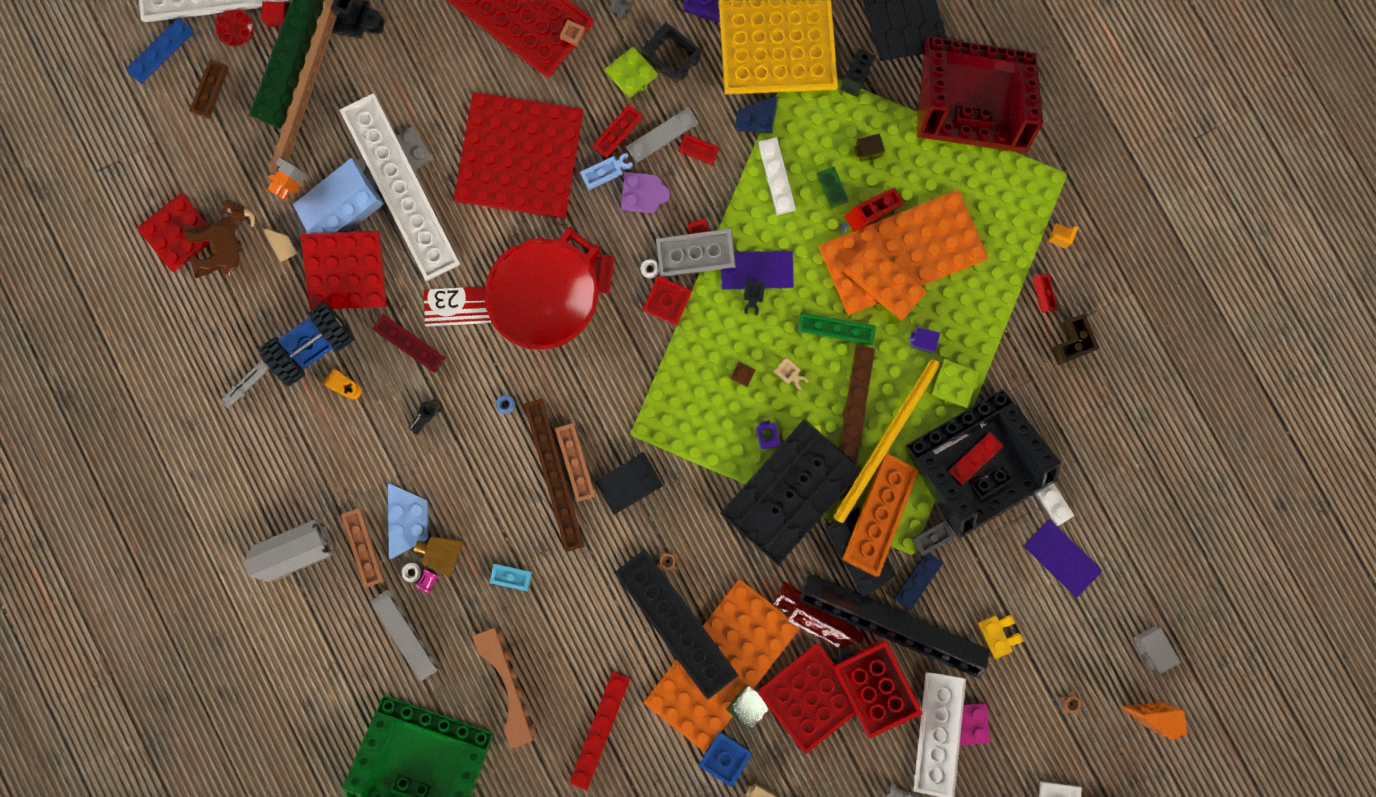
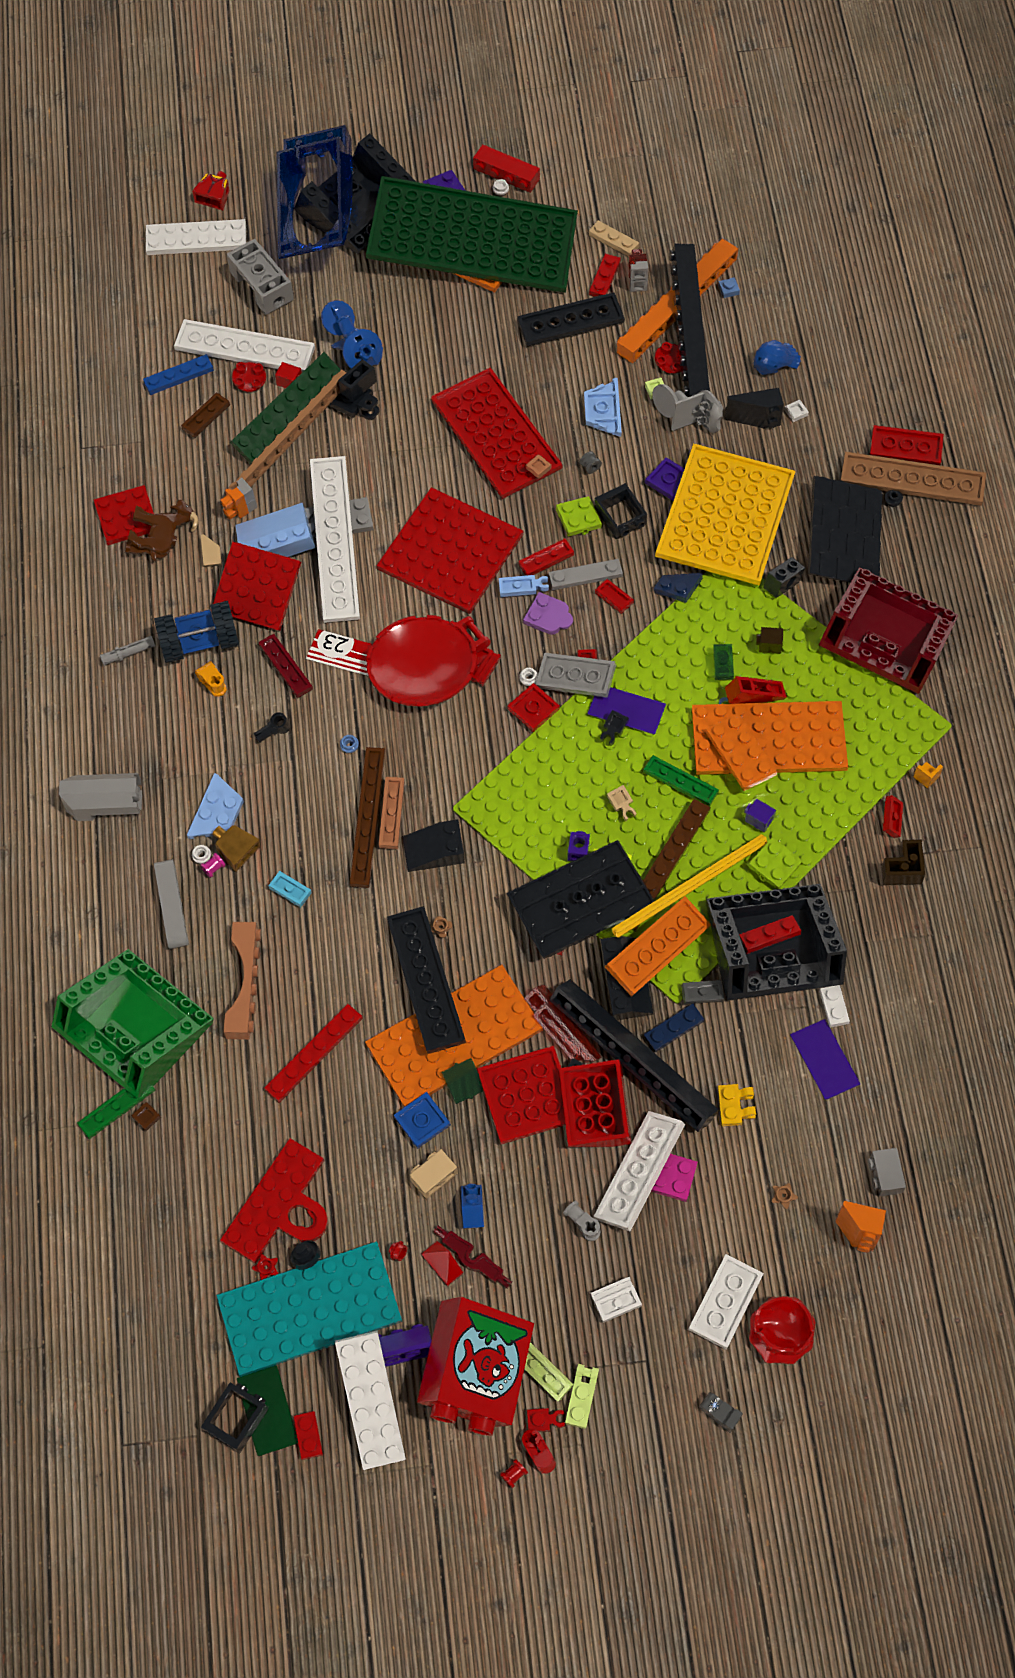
camera: 25 degrees right, 20 degrees down
(362, 547) = (167, 818): nougat plate -> none
(742, 374) = (577, 789): reddish brown plate -> none
(776, 176) = (676, 638): white plate -> none

